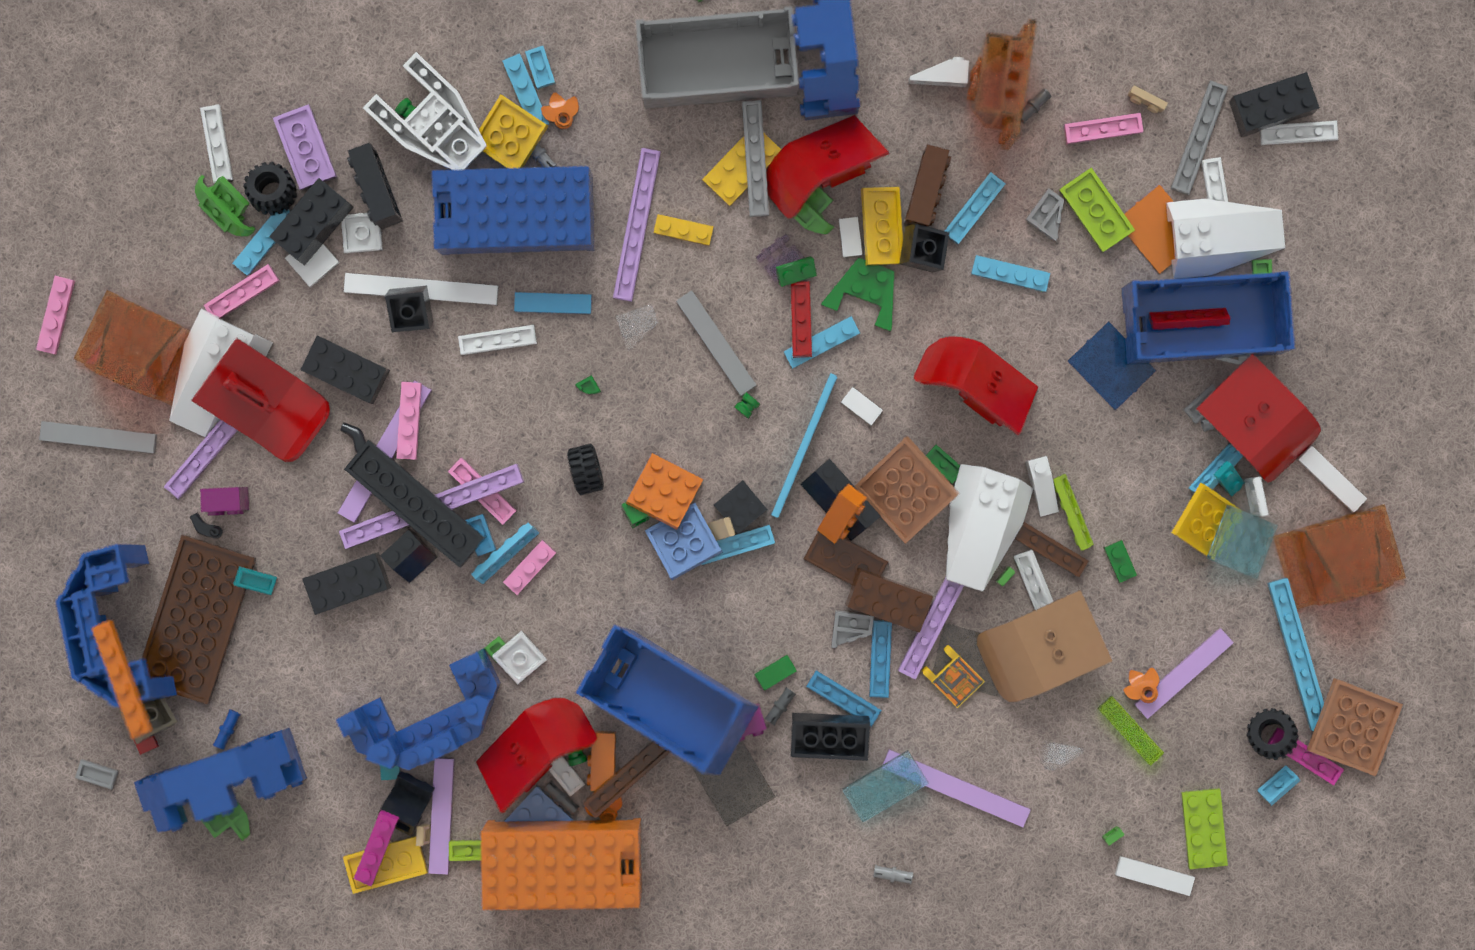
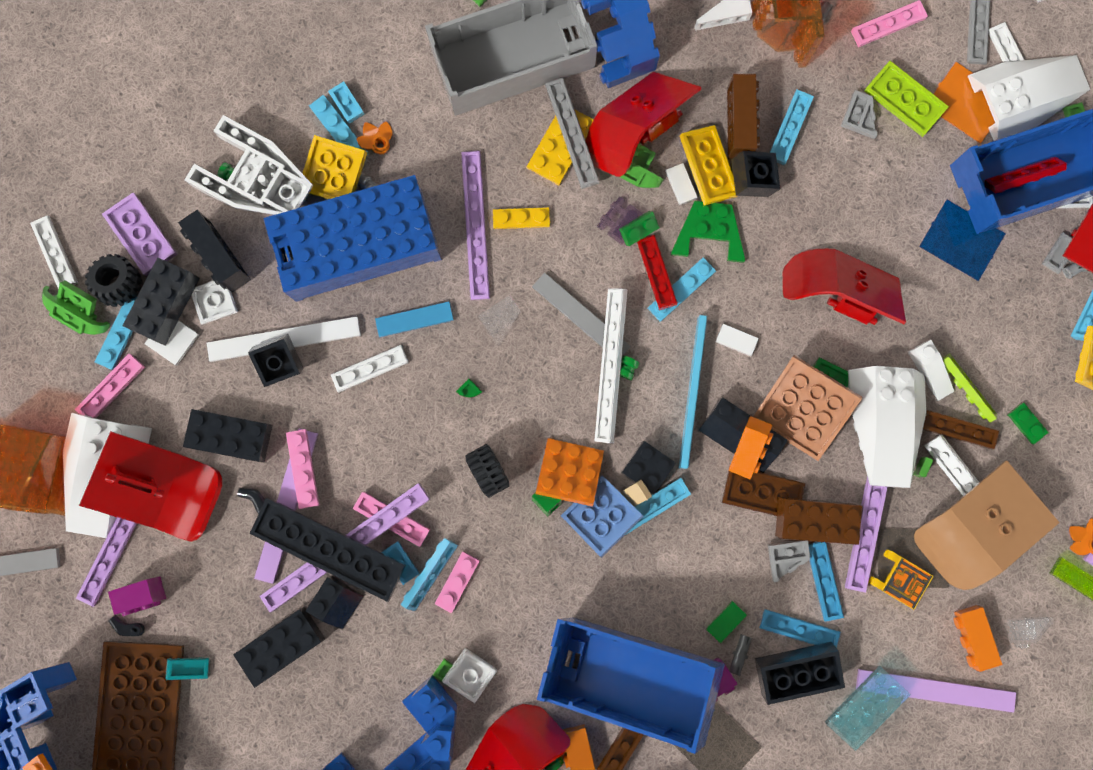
camera: 15 degrees left, 5 degrees down
(731, 399) = (611, 365): none -> white tile
(1008, 750) = (977, 638): none -> orange brick
(1010, 273) = (842, 178): medium azure plate -> none

